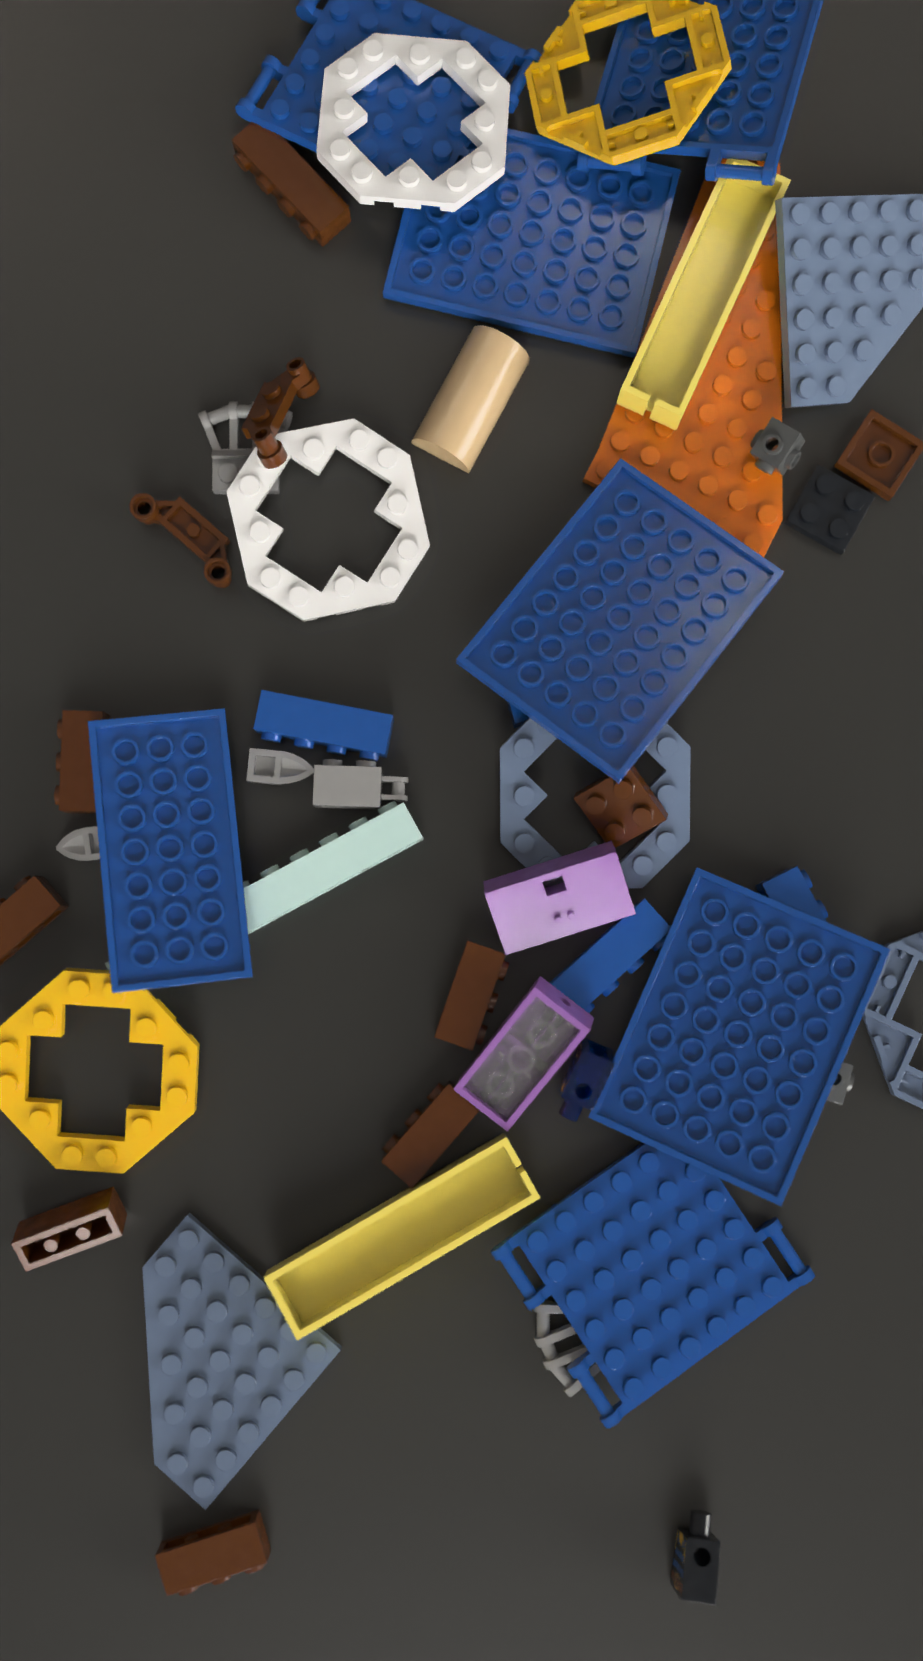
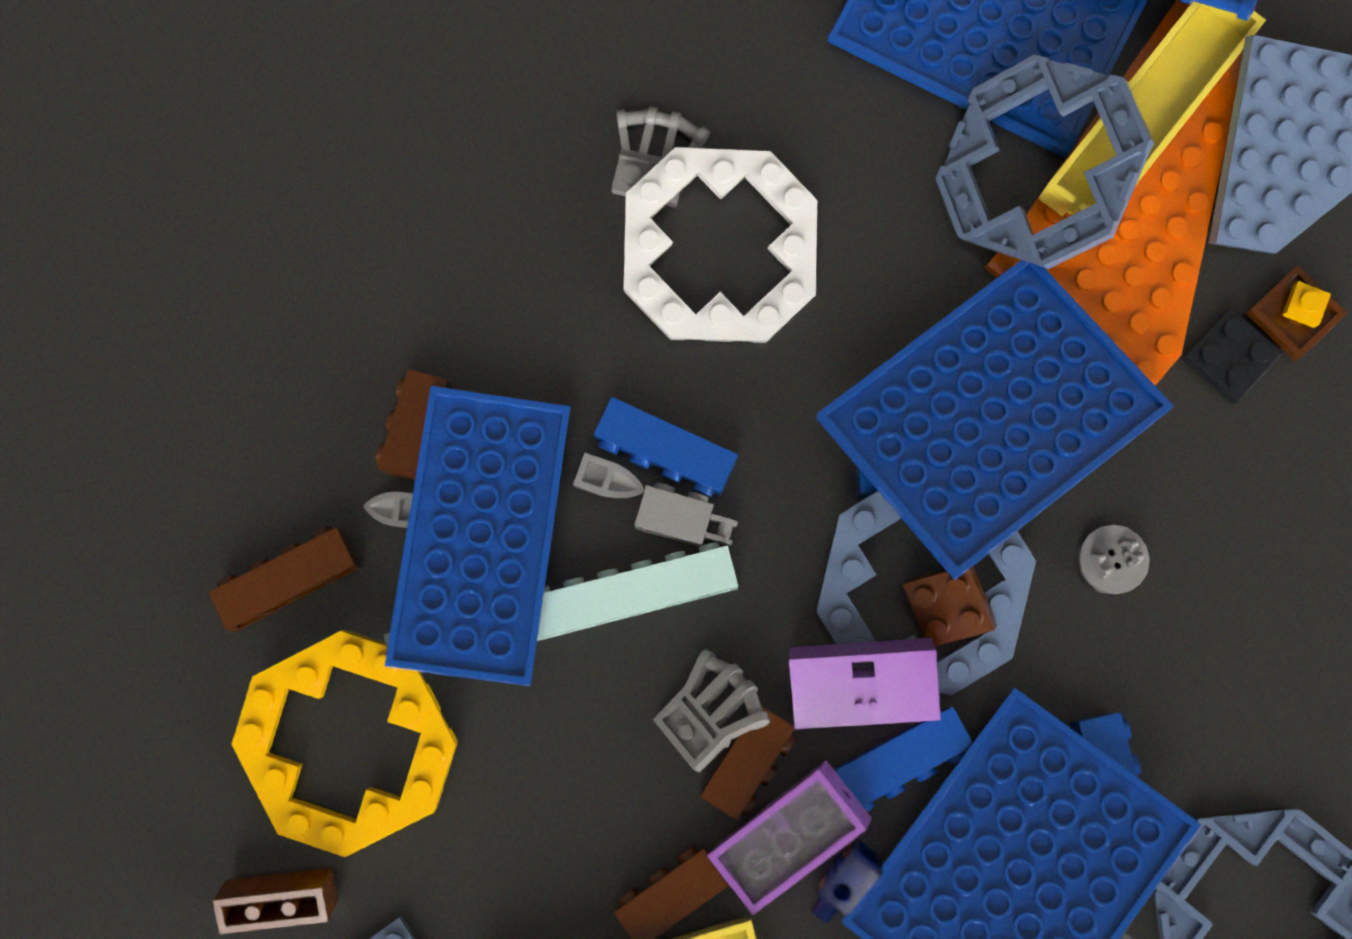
camera: 20 degrees right, 5 degrees down
(189, 529) = (580, 222): reddish brown plate -> none
(272, 406) = (692, 120): reddish brown plate -> none
(409, 974) = (690, 724): none -> light grey plate
(472, 397) = (892, 159): tan brick -> none
(677, 373) = (1109, 181): none -> sand blue plate
(750, 736) = (1099, 567): none -> light grey plate
(776, 447) = (1193, 280): dark grey brick -> none
(887, 445) = (1306, 304): none -> yellow plate

